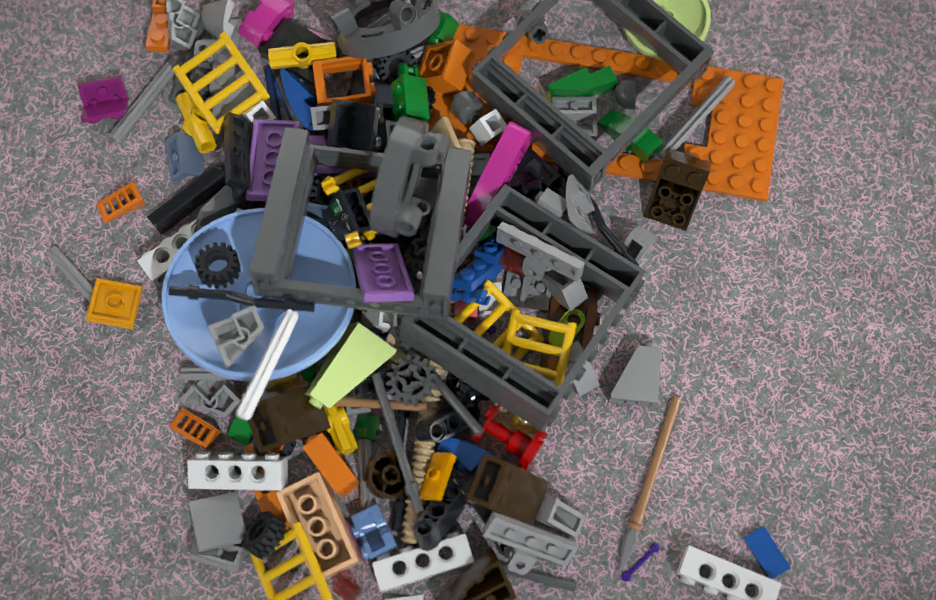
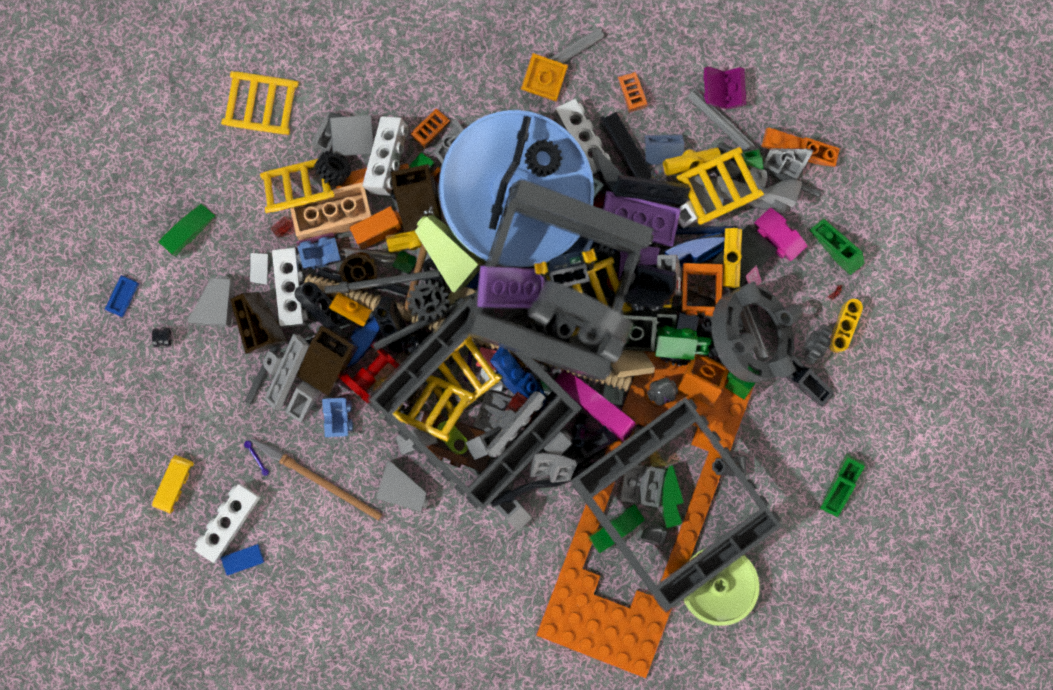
camera: 95 degrees right, 10 degrees up
(183, 53) = (753, 158): none -> green slope
(236, 333) = (479, 163): light grey slope -> none
(267, 365) = (448, 184): white axle -> none
(478, 296) = (486, 365): blue piece -> none
(488, 127) = (638, 405): white brick -> none
(571, 471) = (337, 417): none -> medium blue cylinder
(677, 189) = (557, 558): dark brown slope -> none
(697, 116) = (619, 589): light grey axle -> none

